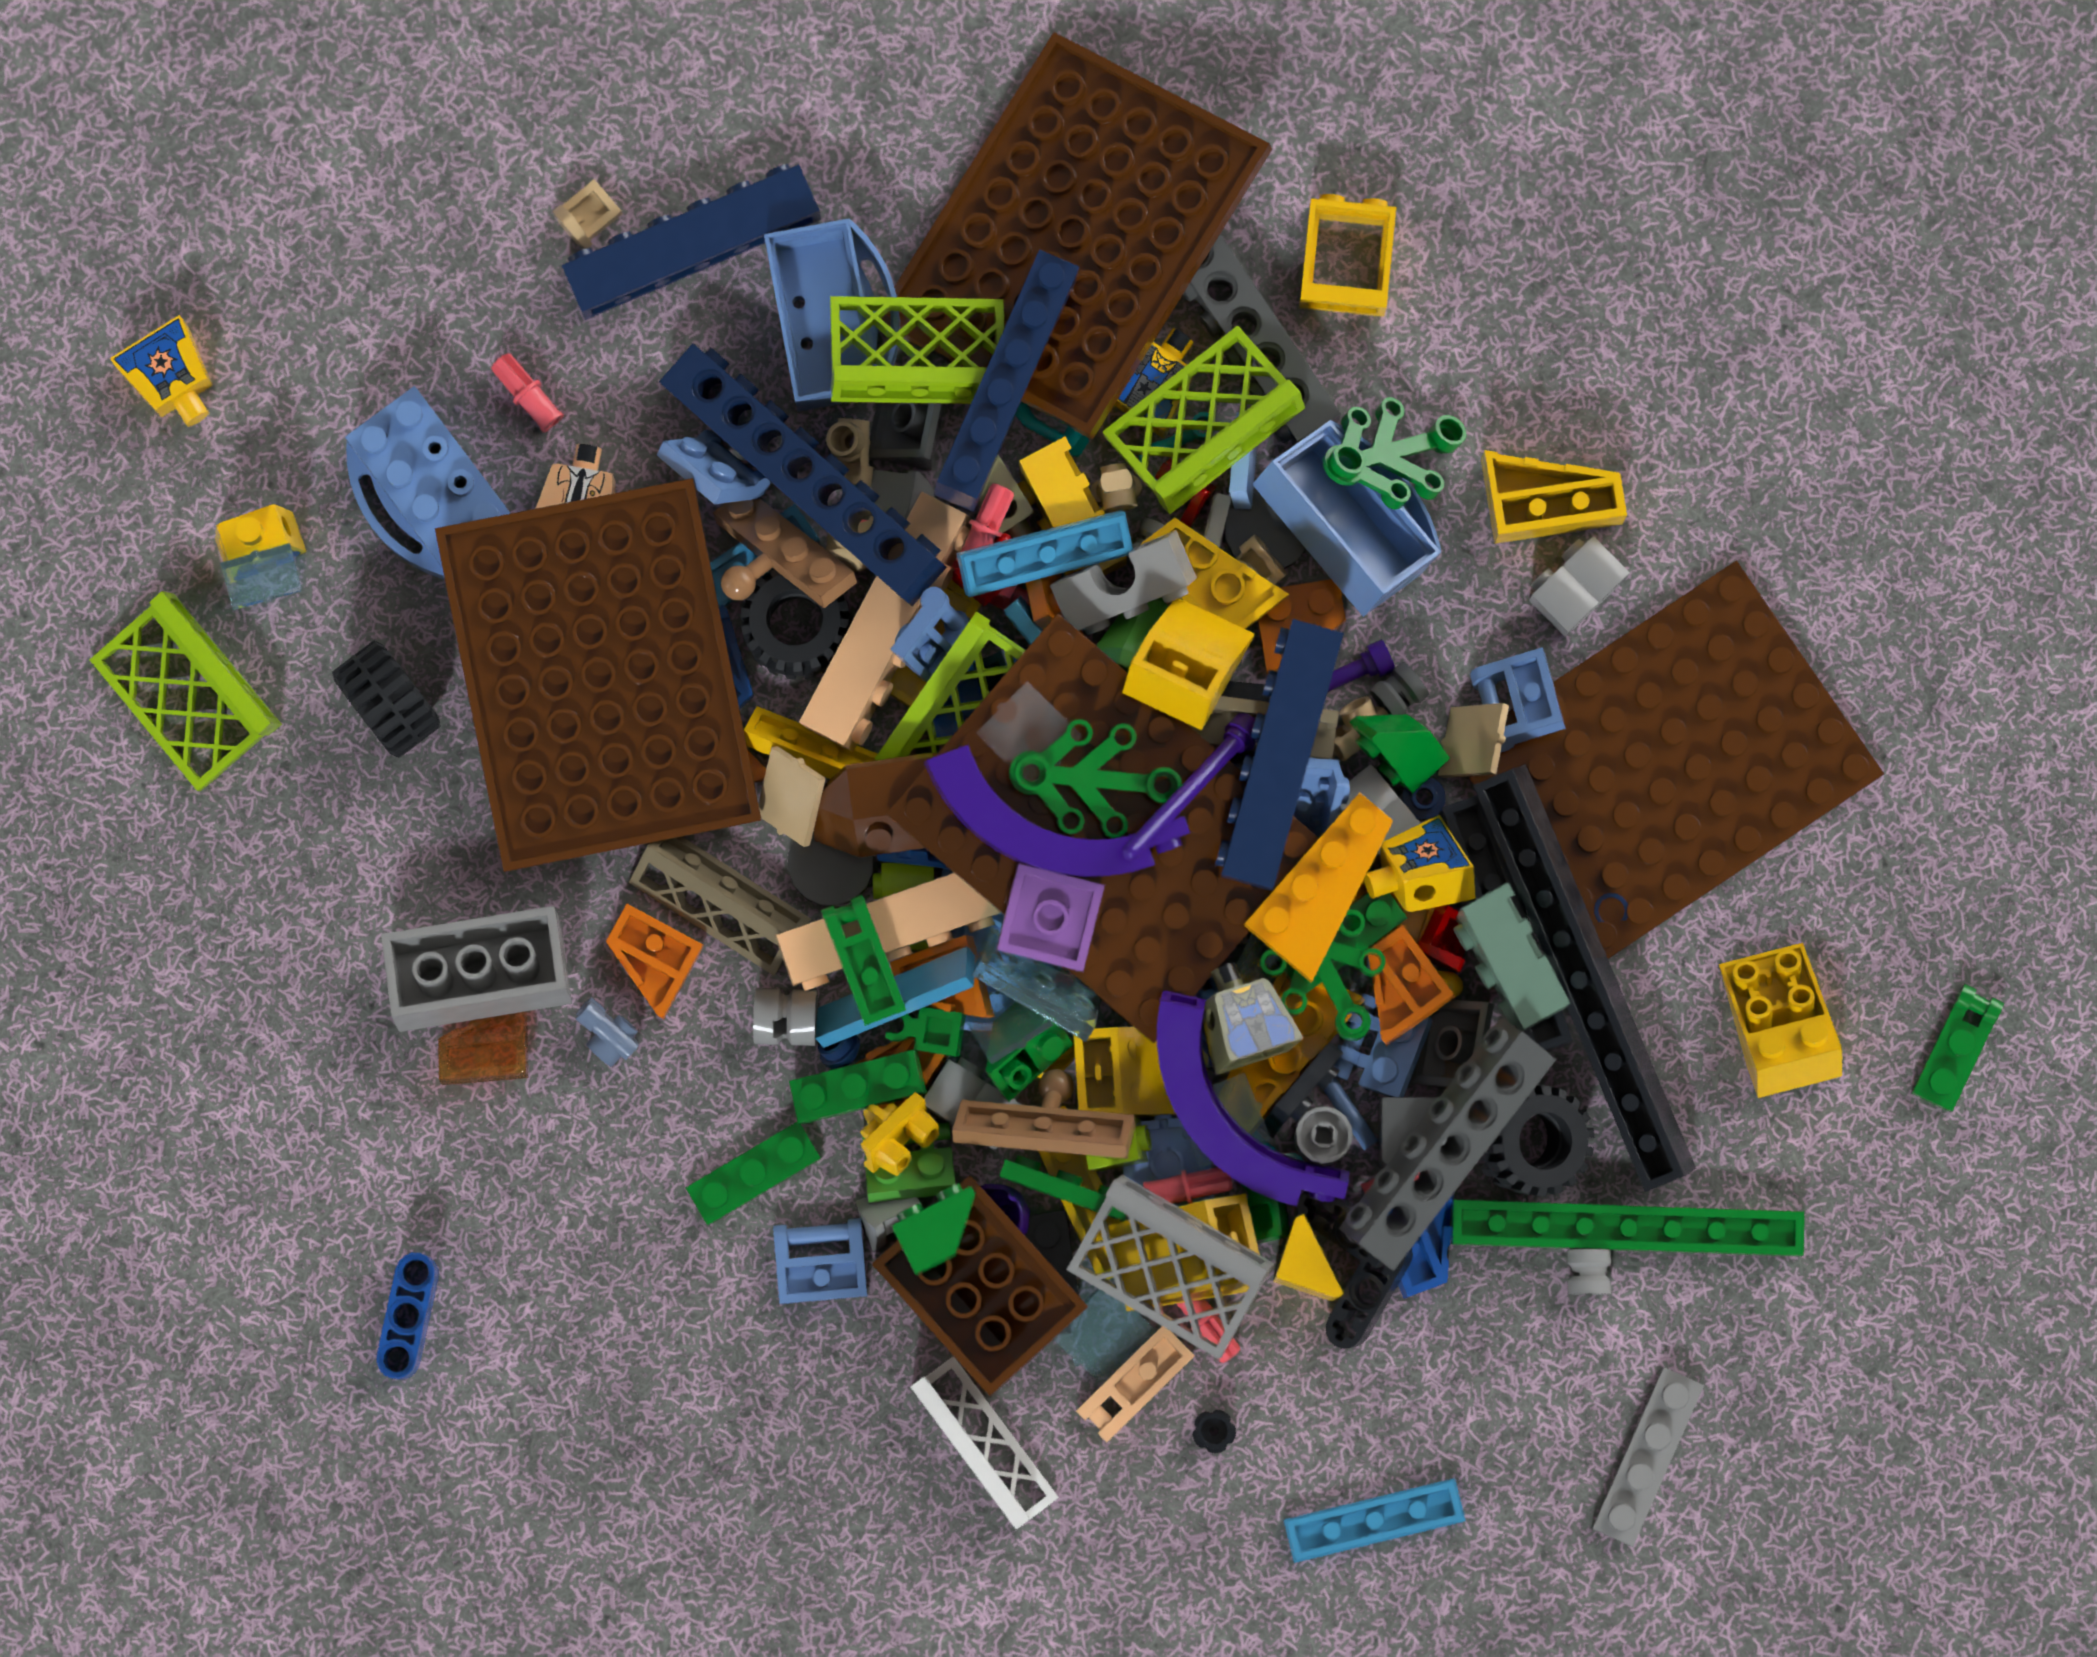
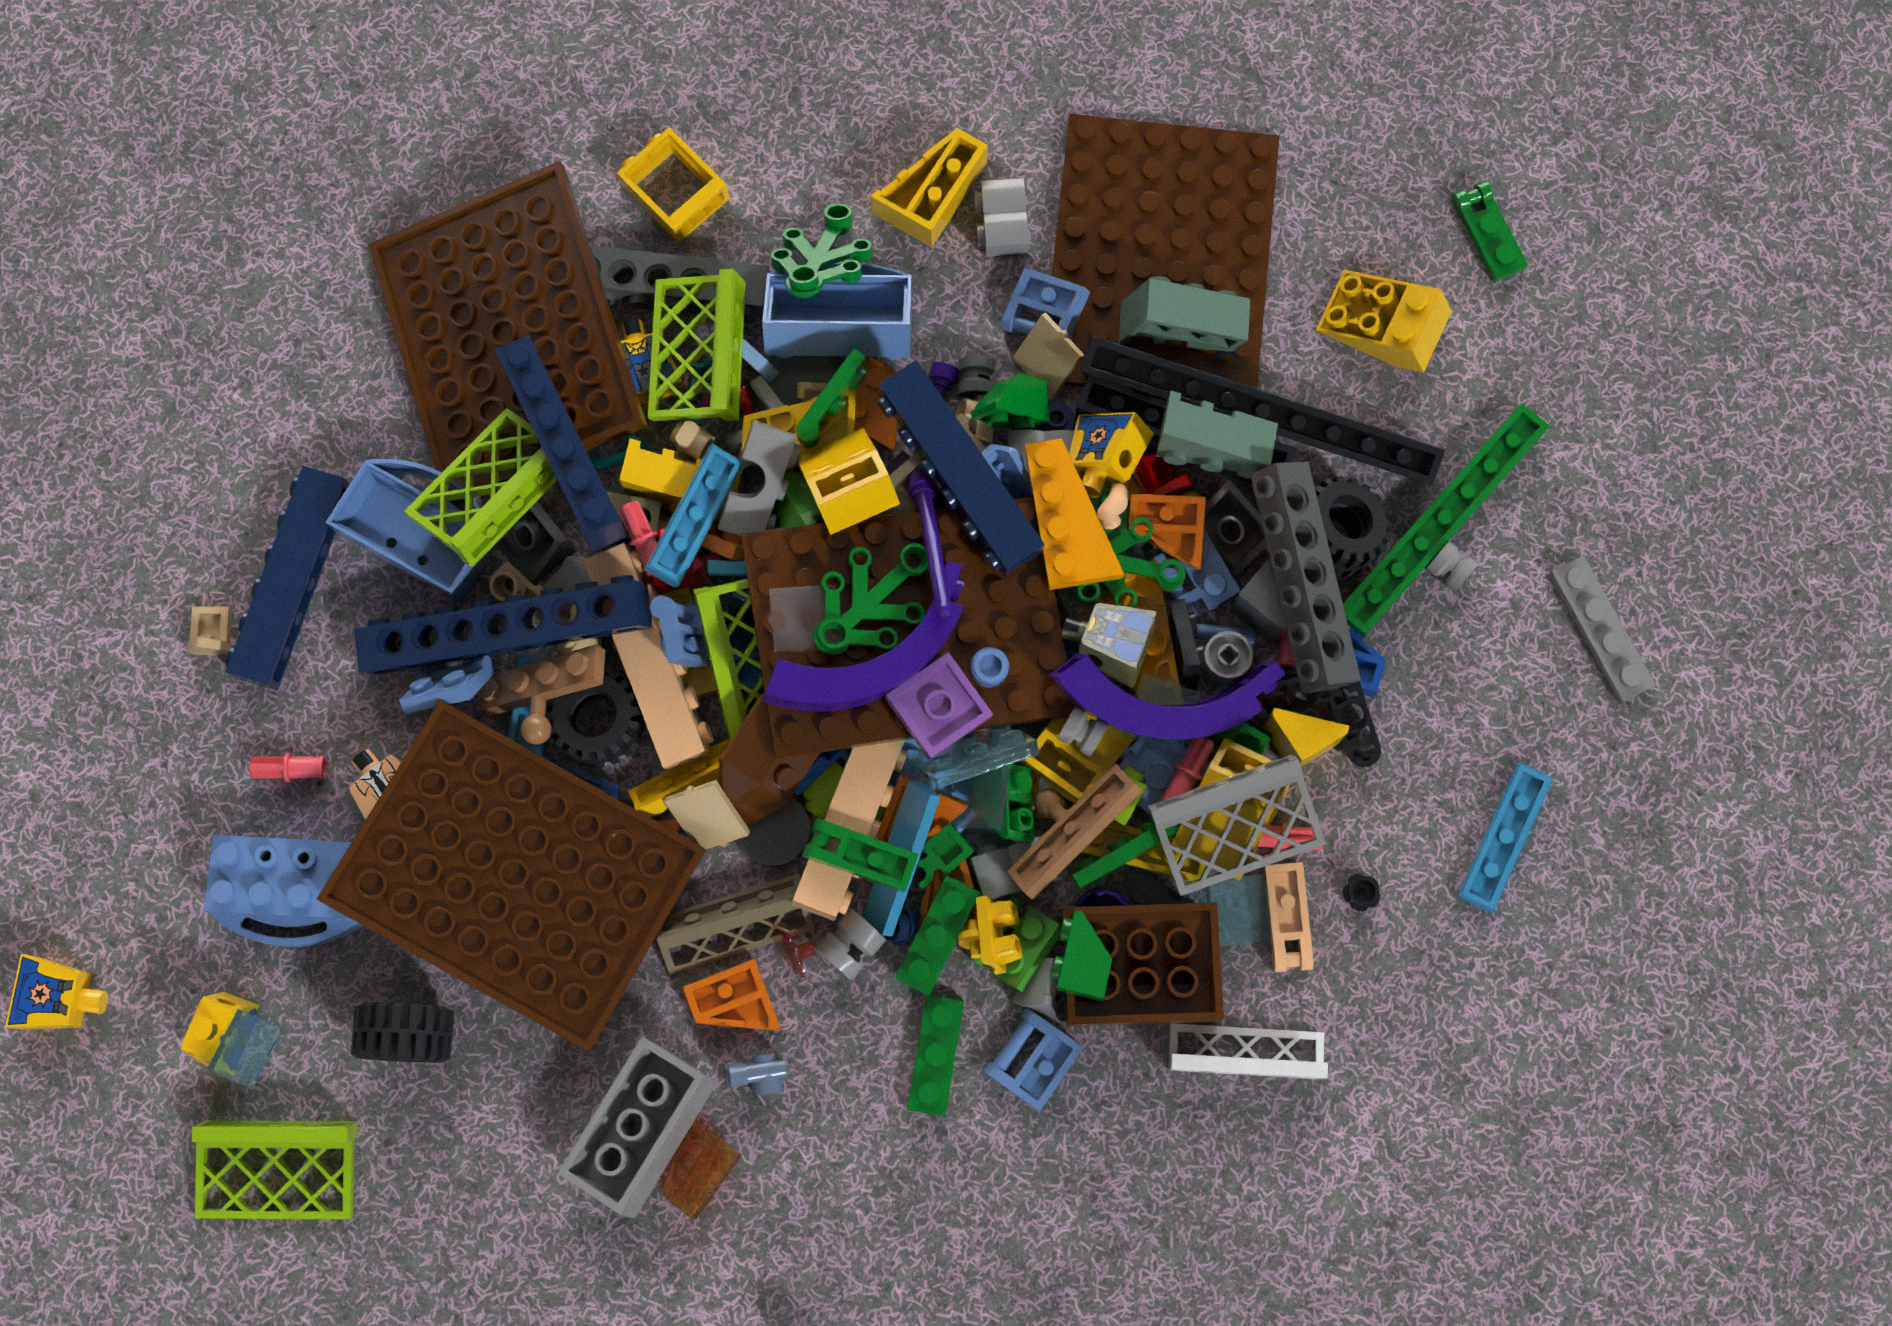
camera: 50 degrees left, 5 degrees down
(740, 978) = (797, 953): none -> clear red plant
(1125, 932) = (989, 667): none -> medium blue tile
(1140, 1062) = (1084, 732): none -> light grey wheel
(1252, 584) = (831, 399): none -> green plate
(1370, 919) = (1113, 506): none -> light nougat arm
(1616, 835) = (1186, 314): none -> sand green wedge

